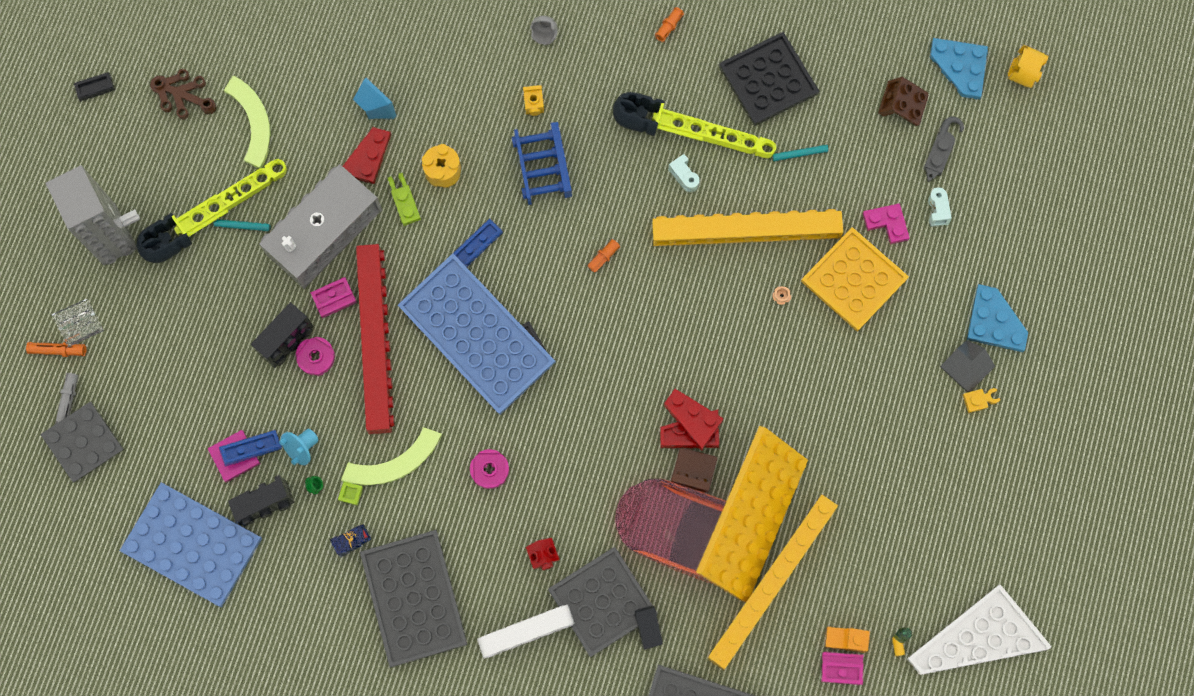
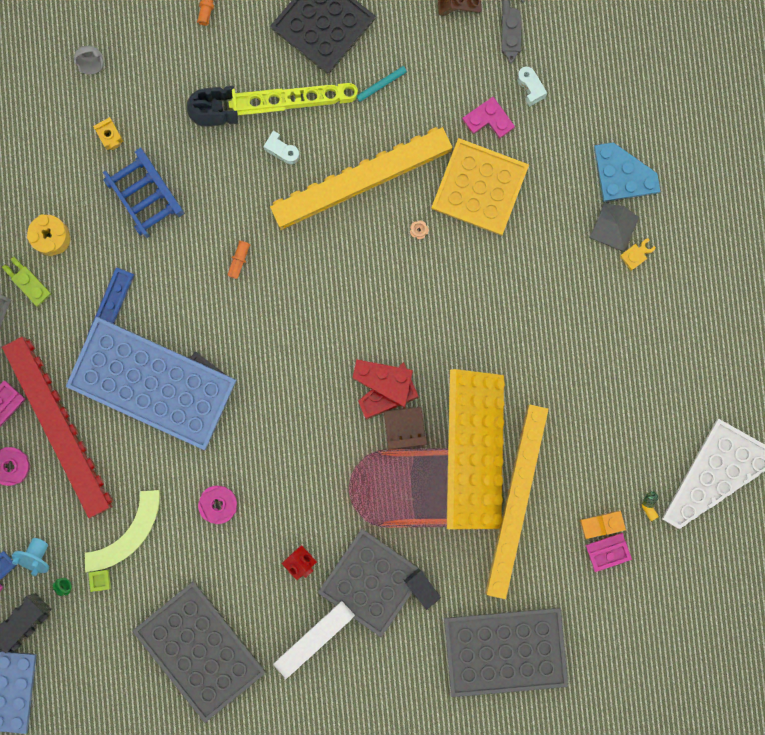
camera: 25 degrees left, 10 degrees up
(350, 540) = (118, 624): clear blue leg -> none

